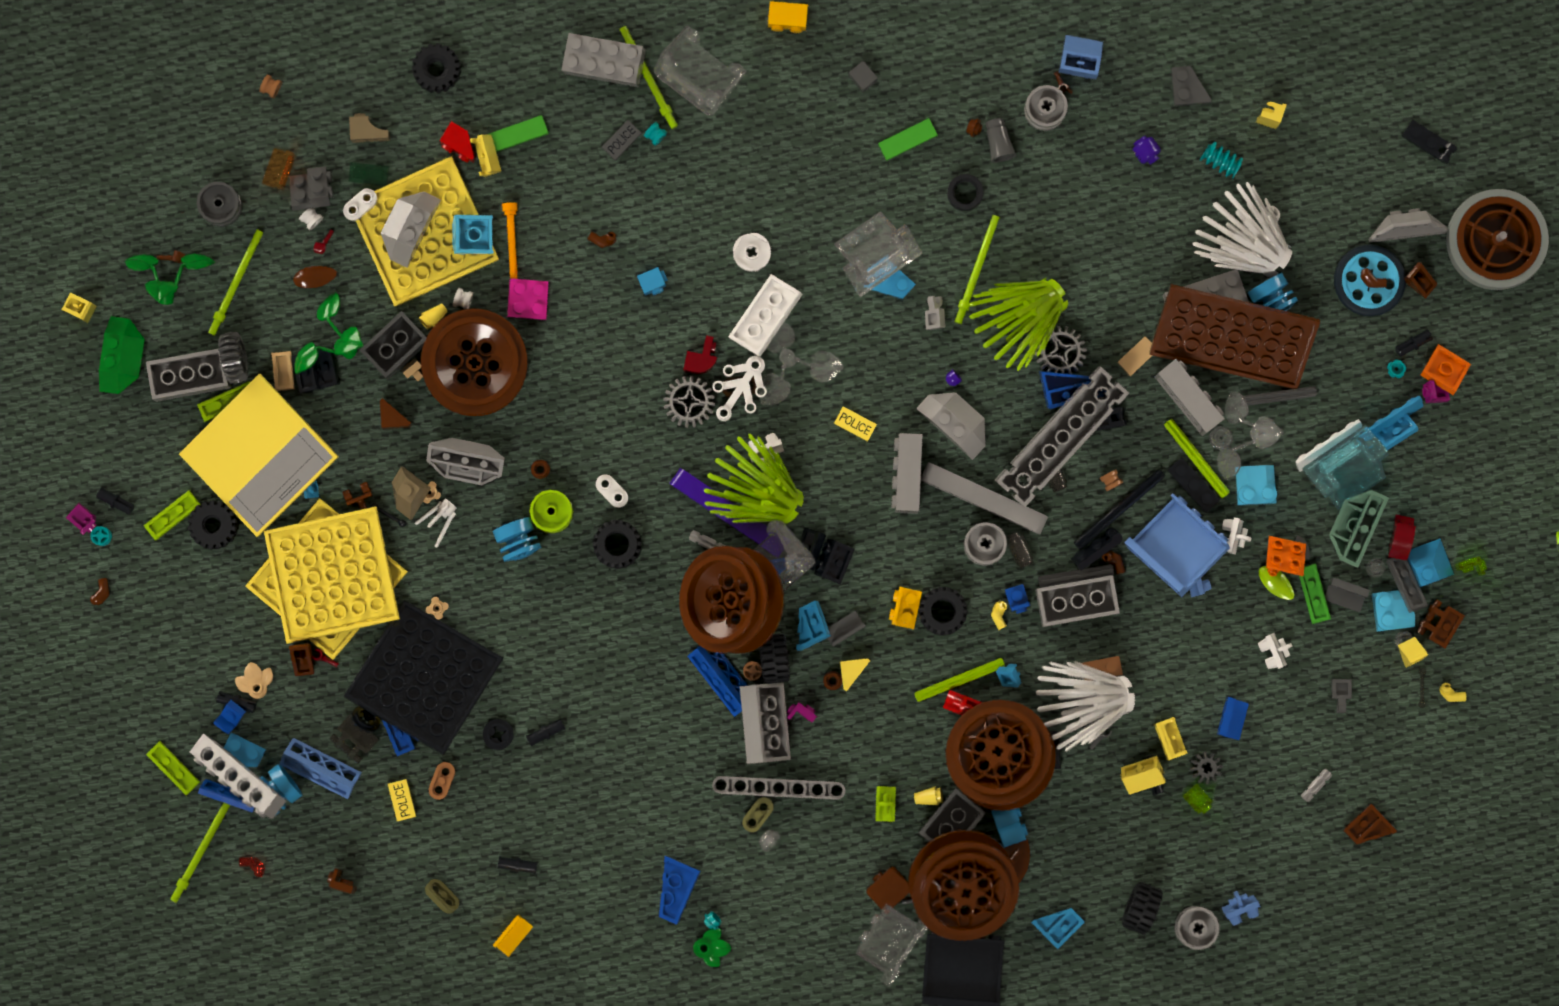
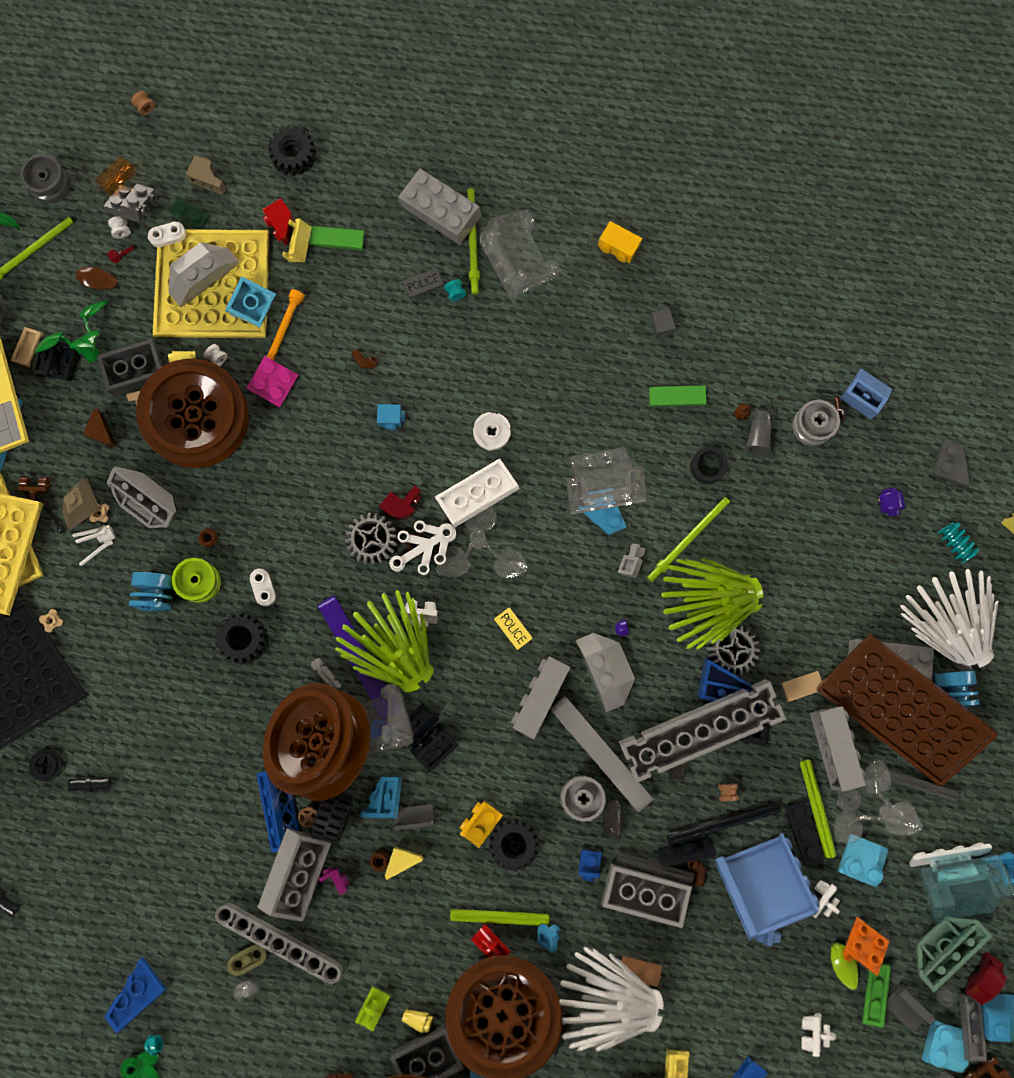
camera: 20 degrees right, 5 degrees down
(997, 614) = (565, 869): light yellow arm -> none

